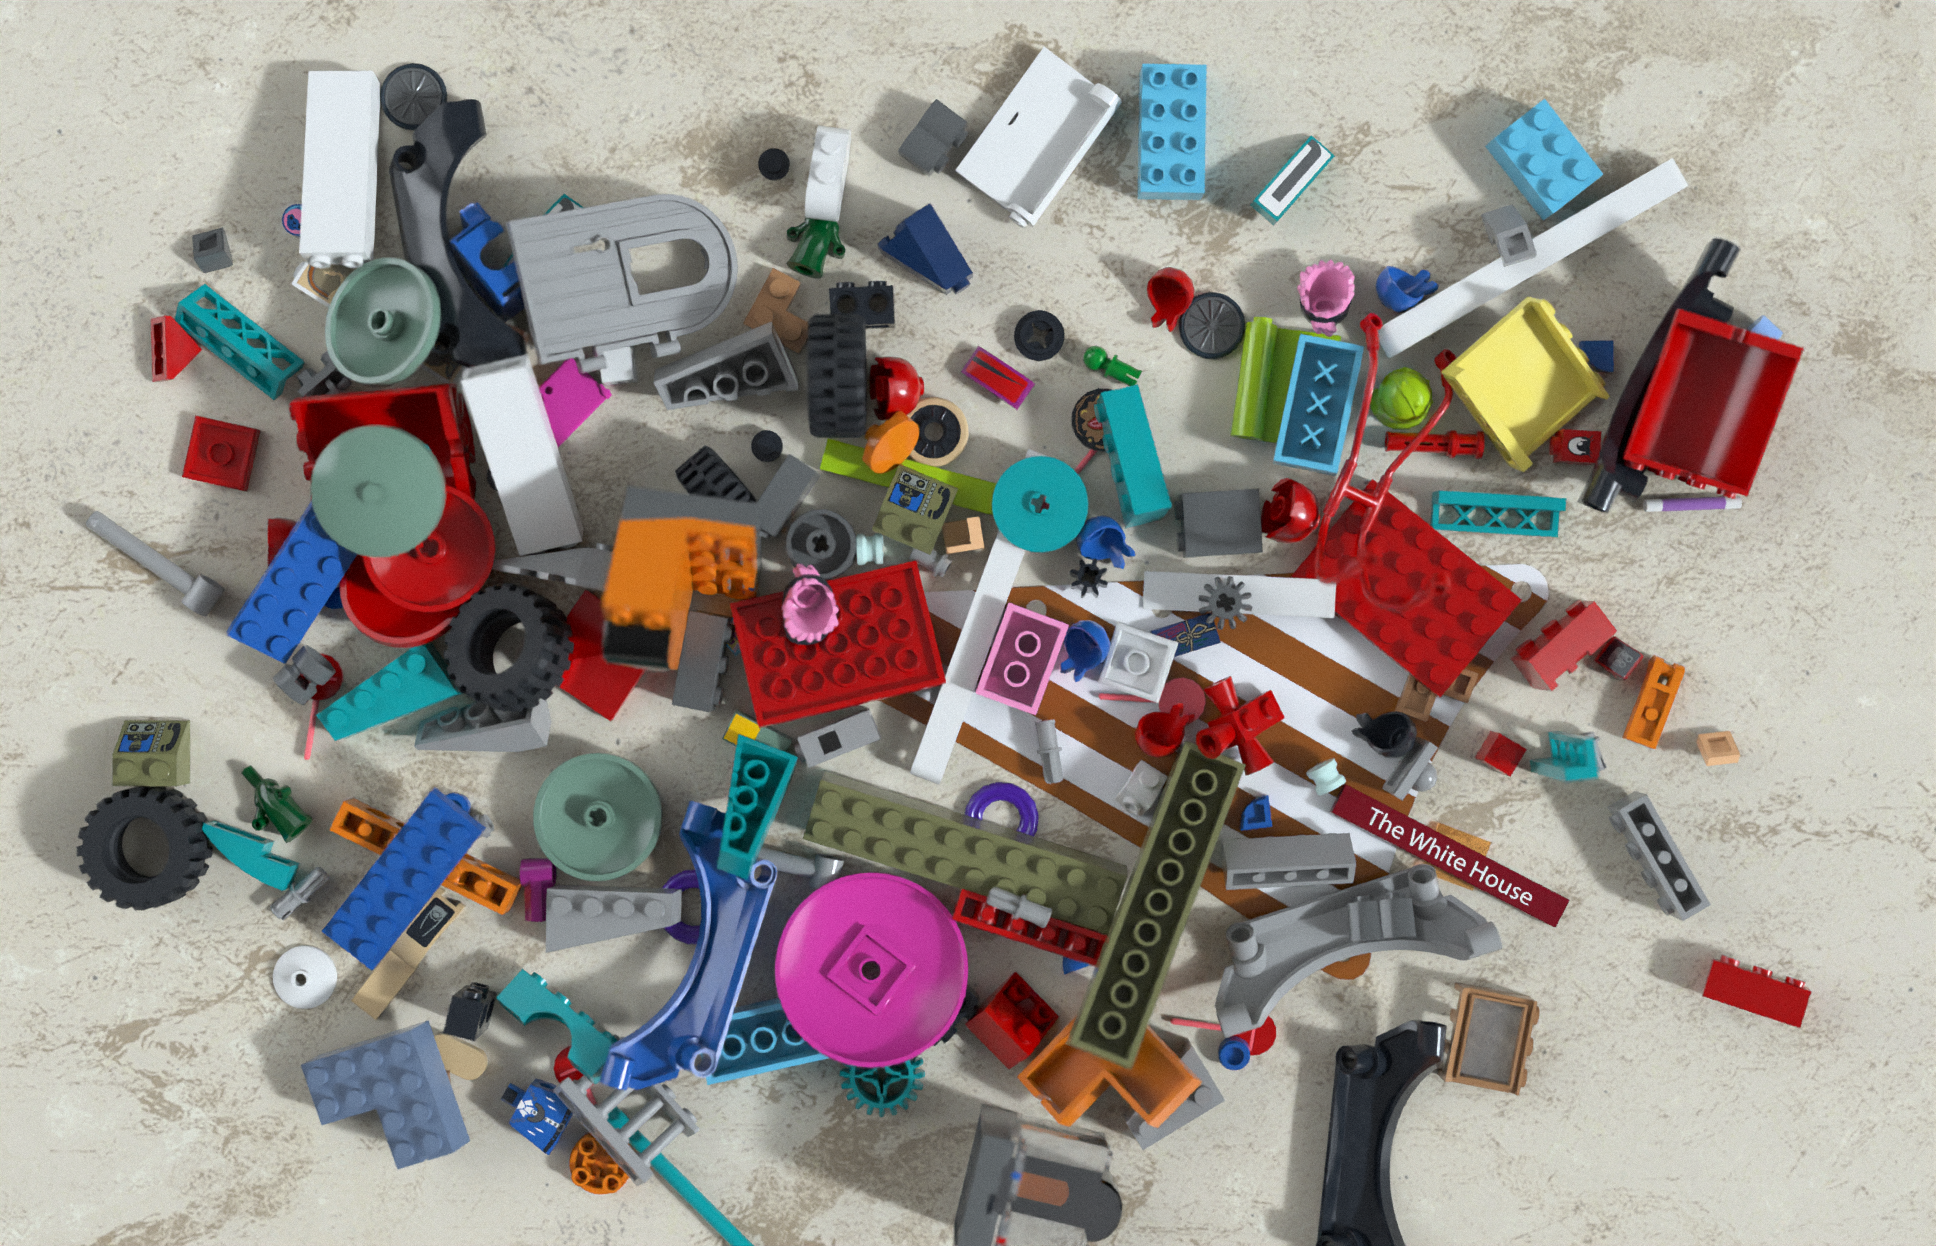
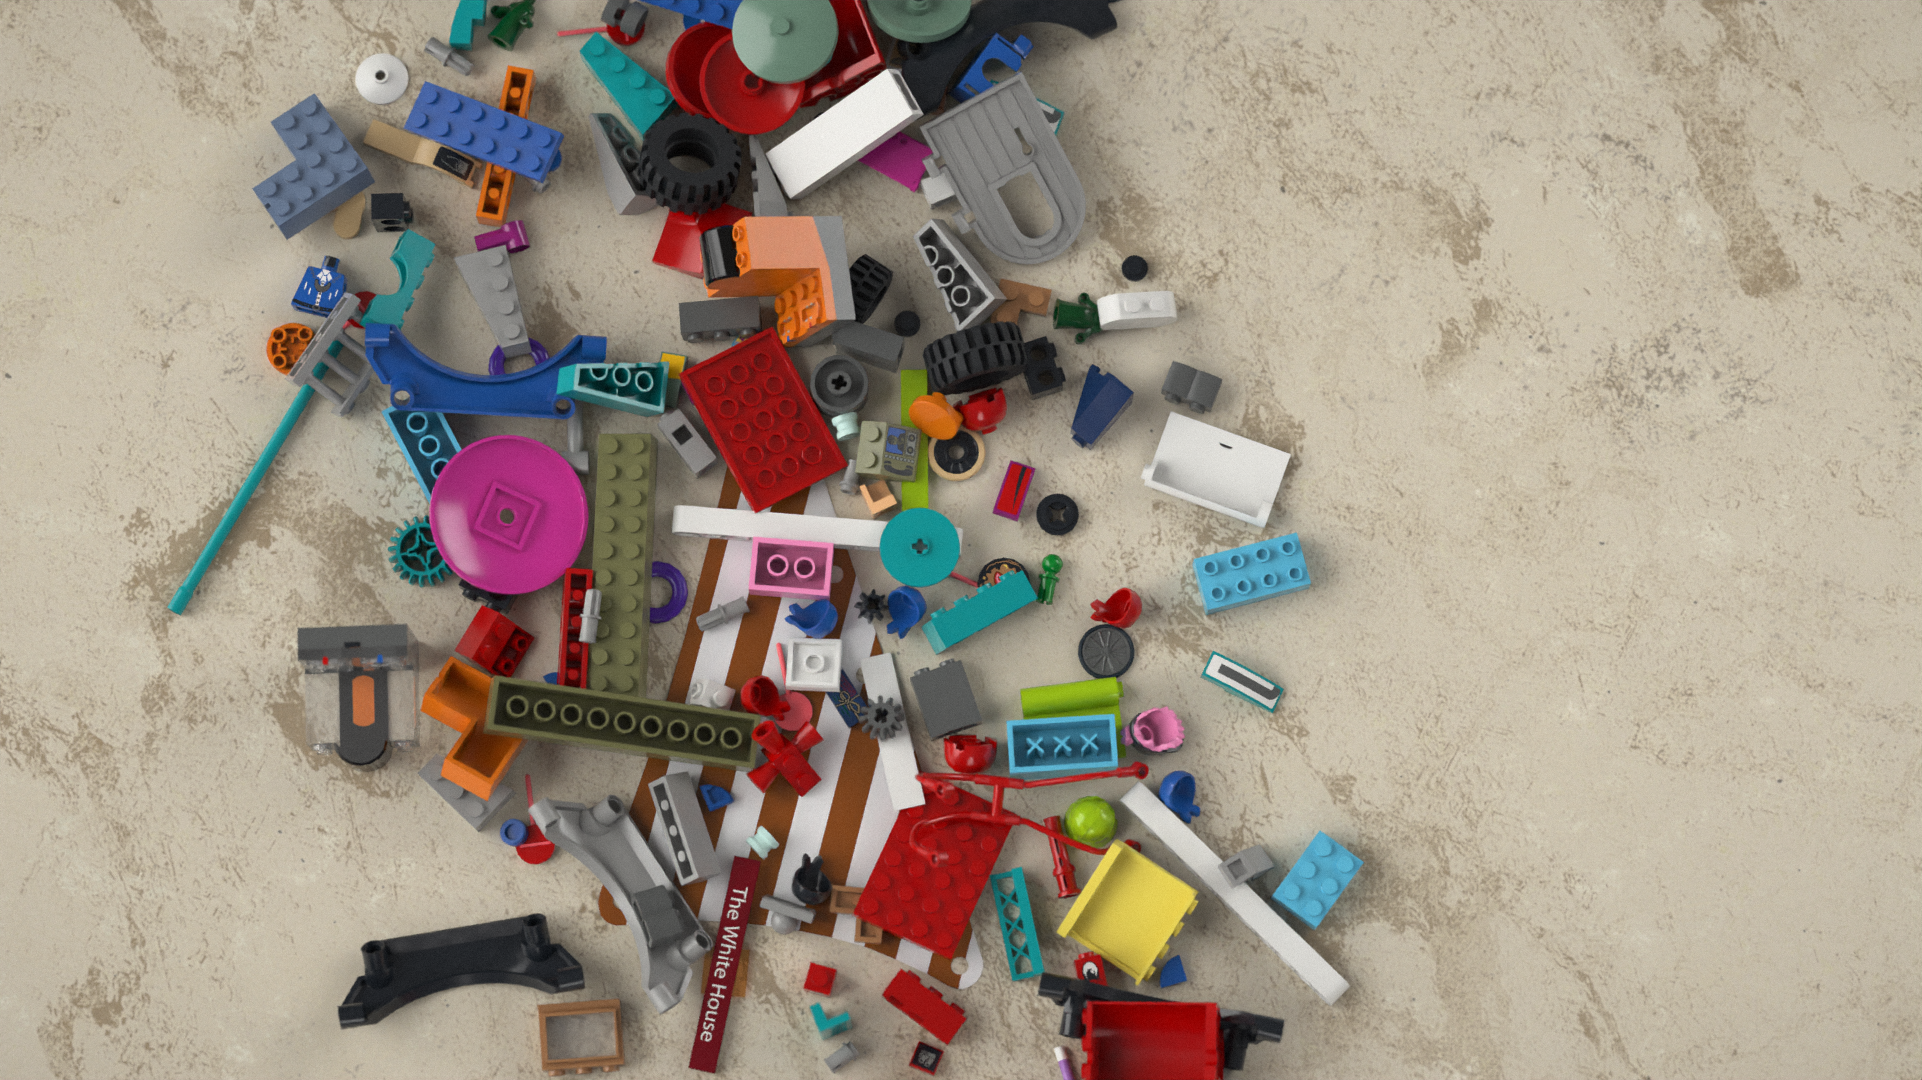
camera: 75 degrees right, 10 degrees down
(597, 816) = (573, 270): sand green dish -> none
(808, 607) = (785, 385): bright pink hair -> none

